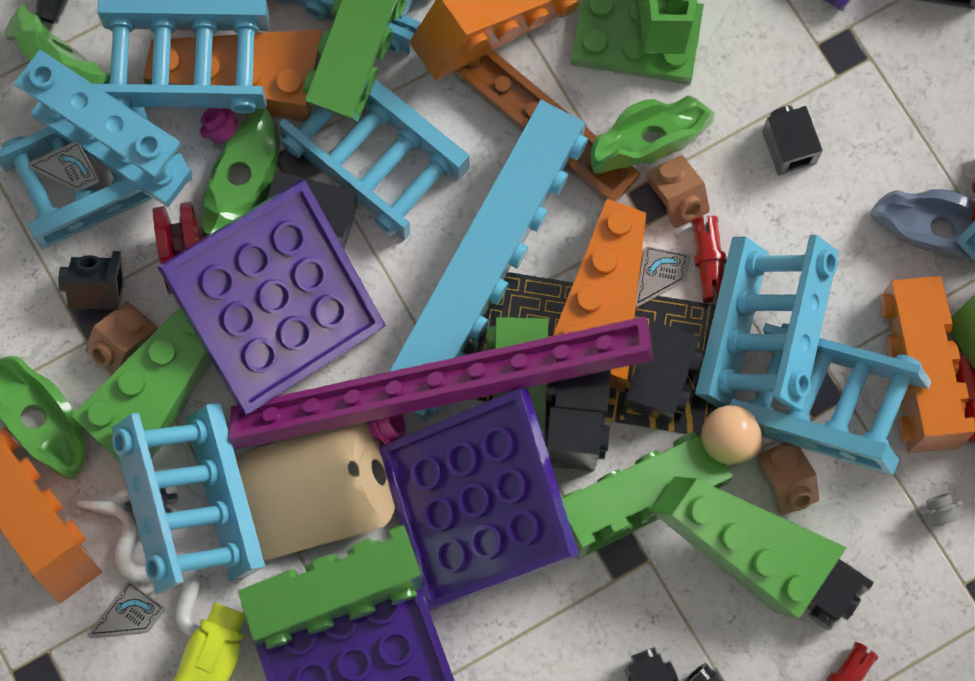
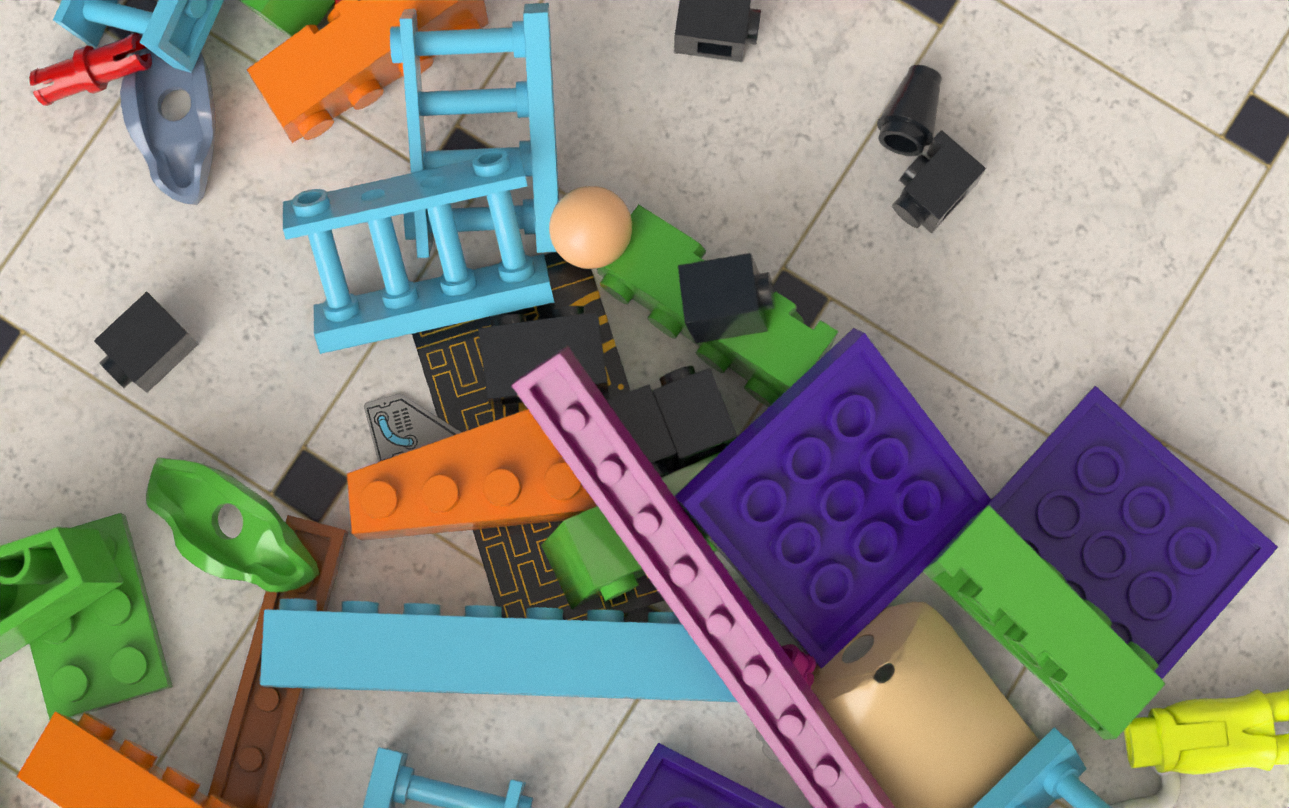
camera: 115 degrees left, 5 degrees up
(639, 485) = (725, 297): none -> black brick
(679, 190) = (284, 456): nougat bracket -> none
(709, 256) = (357, 374): red pin -> none
(755, 547) = (713, 129): bright green wedge -> none
(789, 477) = (596, 143): nougat bracket -> none

